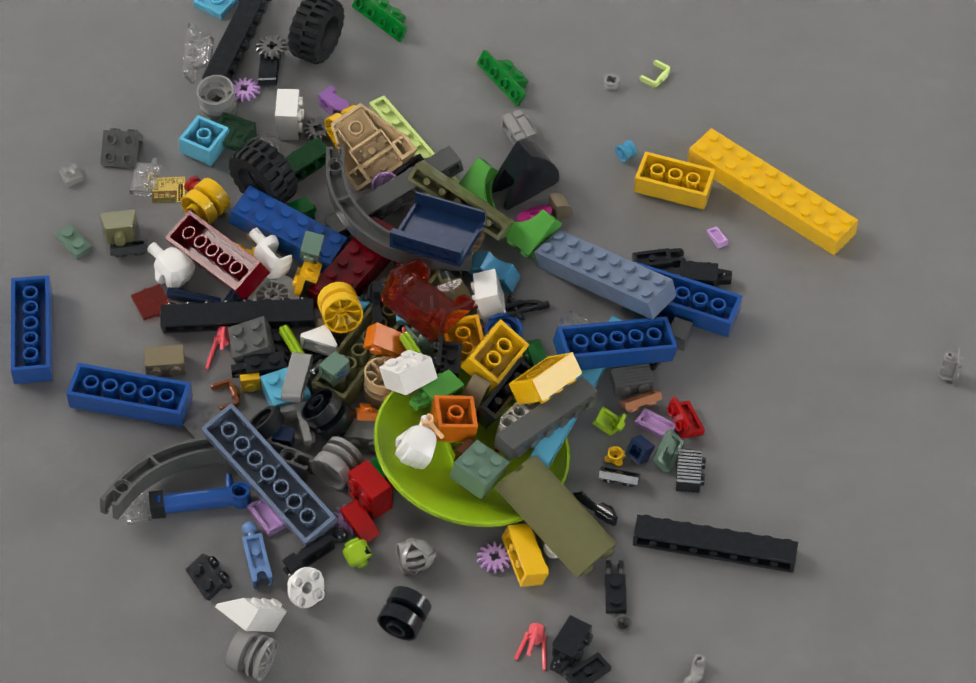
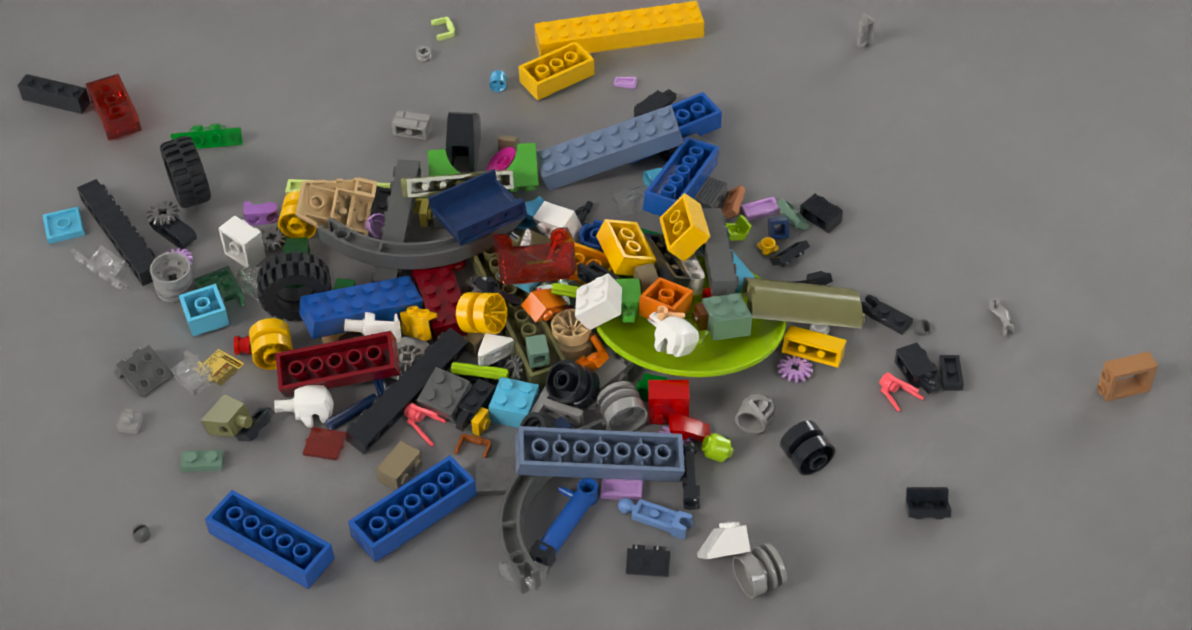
camera: 50 degrees left, 5 degrees down
(296, 377) = (521, 379): light grey beam -> none
(306, 587) = (721, 499): white plate -> none
(311, 246) = (403, 295): sand green brick -> none
(505, 76) = (350, 105): green bracket -> none
(660, 258) = (615, 116): black hinge -> none
(685, 418) = (773, 188): red bracket -> none
(715, 543) = (897, 236): black brick -> none

